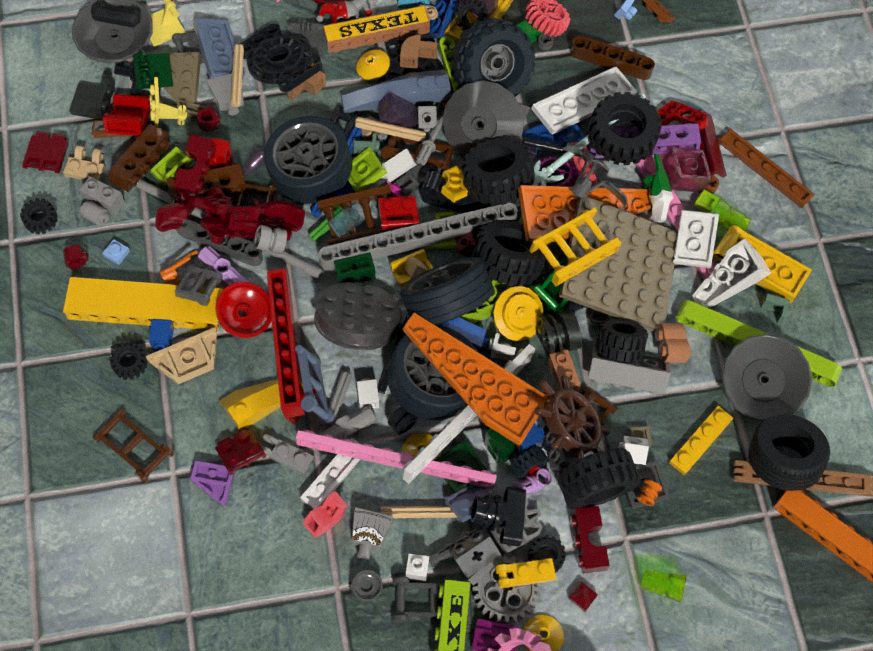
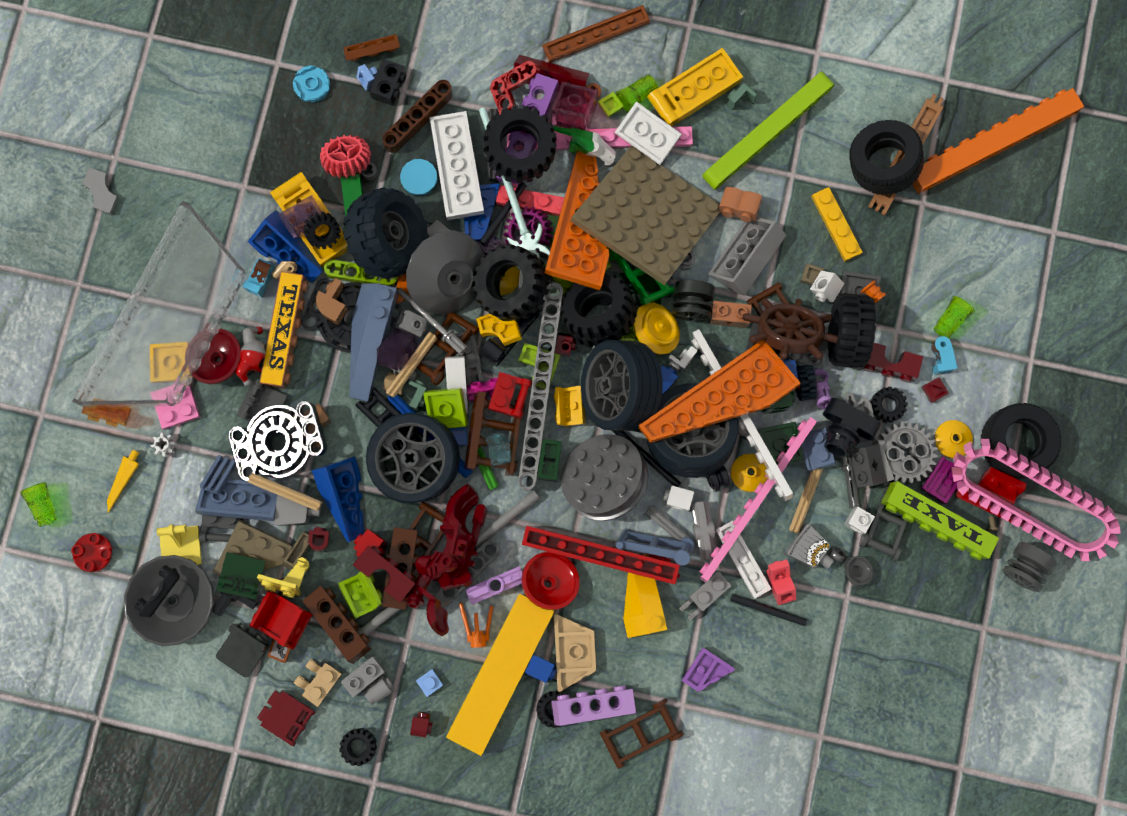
camera: 65 degrees left, 15 degrees up
(152, 417) = (623, 706): none -> lavender brick
(193, 282) = (505, 620): dark grey plate -> none
(229, 26) = (223, 461): none -> sand blue tile
(239, 450) = (688, 636): dark red plate -> none
(254, 162) = (385, 509): clear purple cone -> none
(255, 122) = (340, 490): none -> blue wedge
(271, 239) = (489, 527): light grey wheel -> none
(295, 528) = (767, 609): none -> black bar
(373, 65) = (331, 347): yellow dish -> none
(379, 561) = (837, 554): none -> flat silver piece
(414, 267) = (571, 403): tan slope -> none
(526, 573) = (904, 429): yellow plate -> none
(558, 78) = (418, 177): none -> medium azure tile
(576, 264) = (644, 236): yellow fence -> none
(583, 185) = (566, 210): dark grey plant -> none
(621, 340) = (724, 248): black tyre -> none
(621, 591) = (944, 356): none -> medium azure leg
(629, 25) = (383, 81): none -> black brick
(736, 272) = (700, 117): white wedge -> none
(782, 366) = (823, 130): dark grey dish -> none

